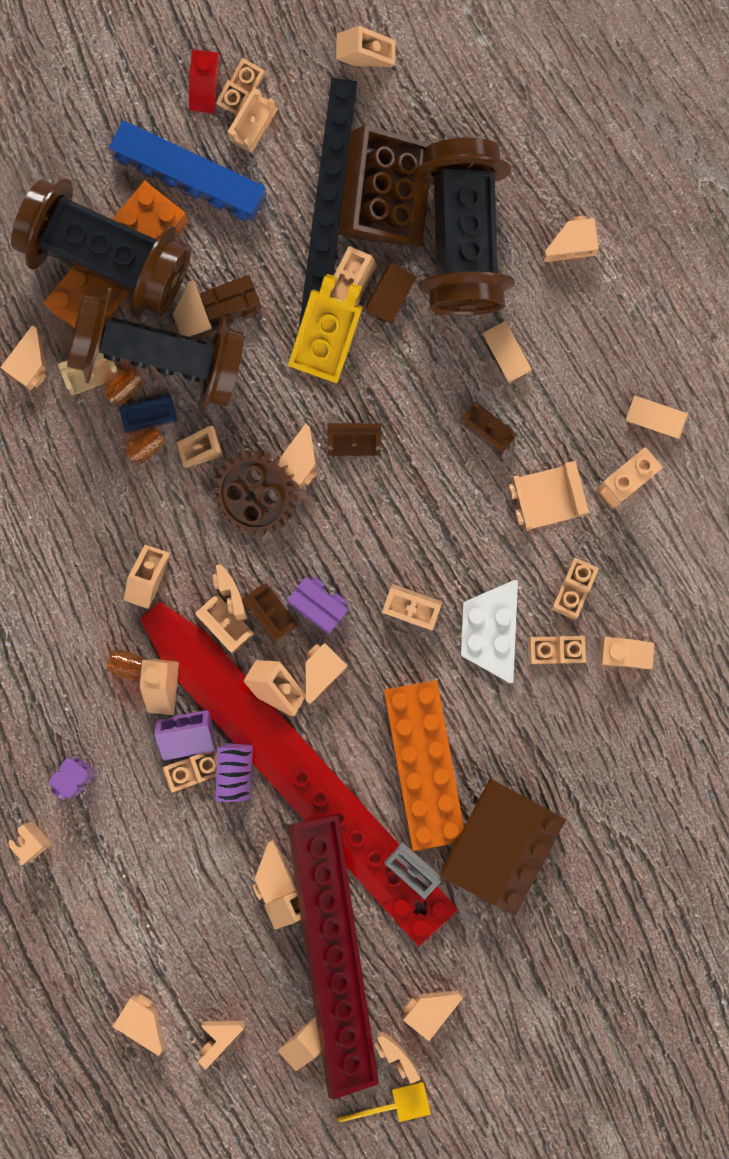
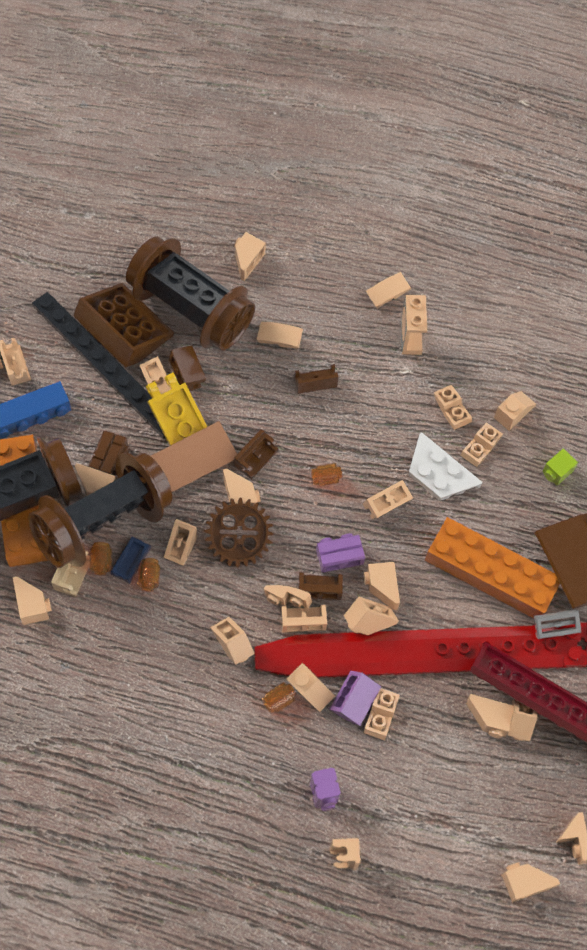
camera: 55 degrees left, 20 degrees down
(233, 772) = (405, 685): medium lavender brick -> none
(296, 382) = (195, 456): none -> nougat tile
(365, 48) = (32, 272): light nougat slope -> none
(390, 525) = (326, 474): none -> clear orange brick
(548, 496) = (385, 377): light nougat panel -> none
(594, 747) = (559, 467): none -> lime brick

